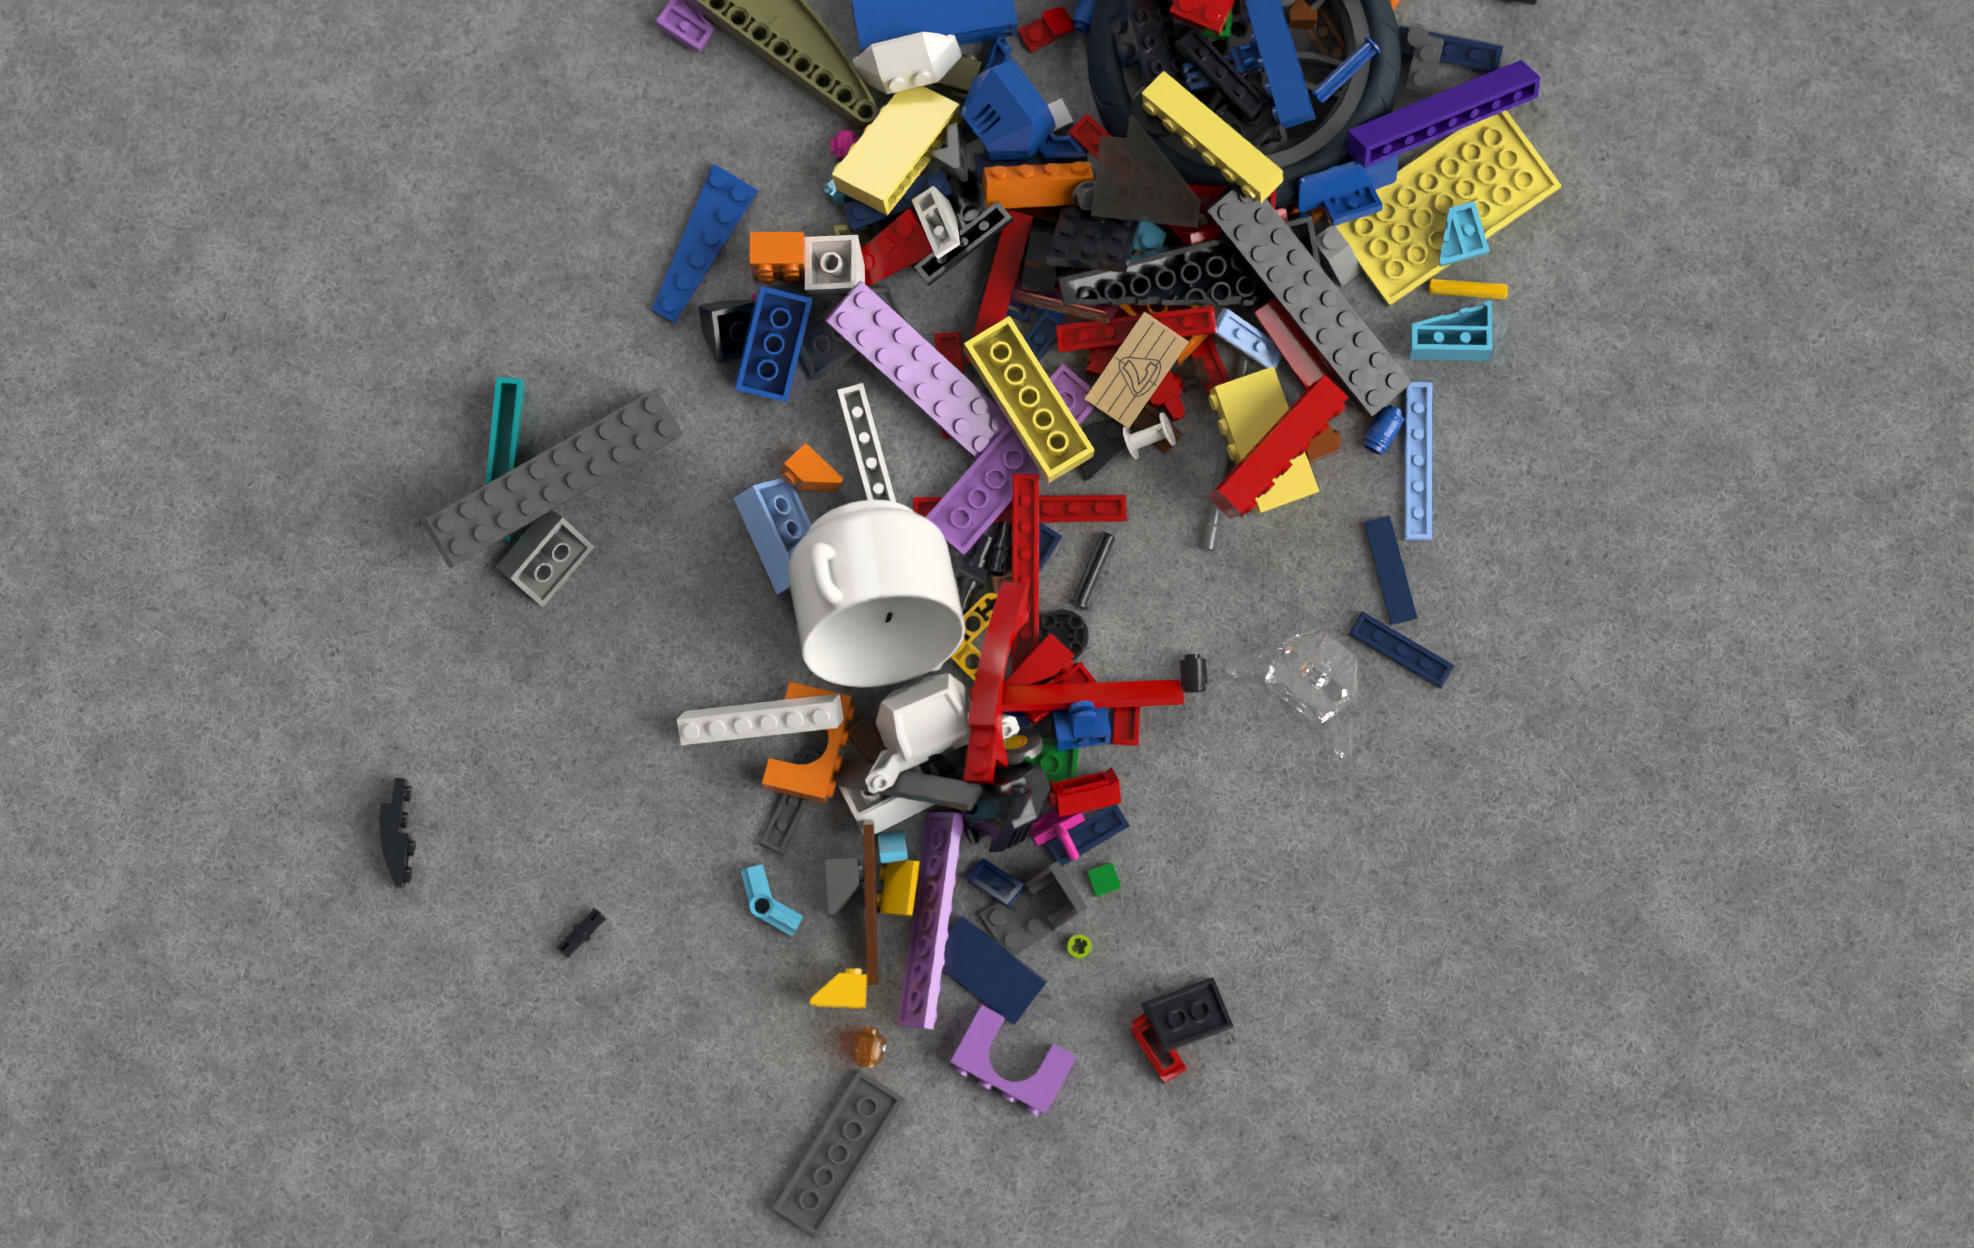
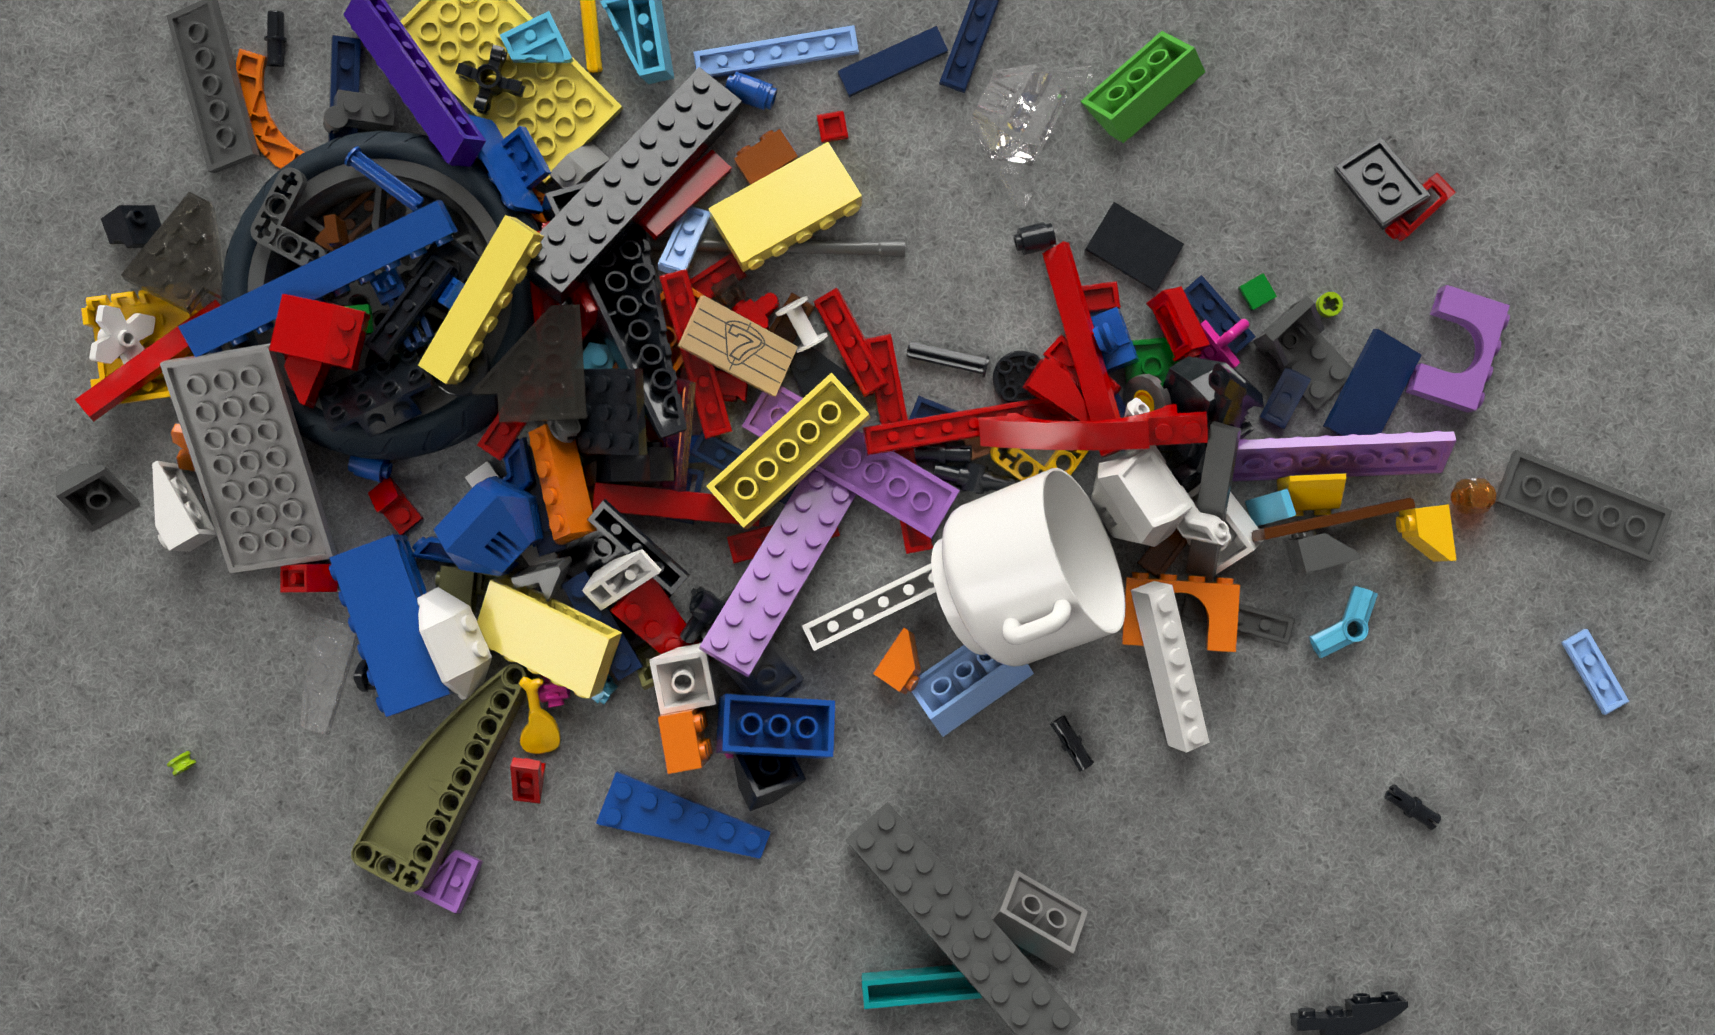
camera: 95 degrees left, 5 degrees up
(676, 1135) = (1595, 671): none -> light blue tile
(704, 620) = (1072, 743): none -> black pin
(766, 107) = (527, 779): none -> red slope
(809, 128) = (542, 730): none -> yellow piece
(895, 295) = (704, 610): none -> black axle
(1124, 481) = (851, 342): none -> red tile
(1169, 769) = (1134, 246): none -> black tile
(1226, 112) = (450, 292): none -> blue tile
(1273, 452) = (795, 183): red brick -> none
(1323, 805) = (1144, 85): none -> bright green slope
(1336, 502) = (832, 126): none -> red tile
(1450, 194) = (484, 98): none -> black pin

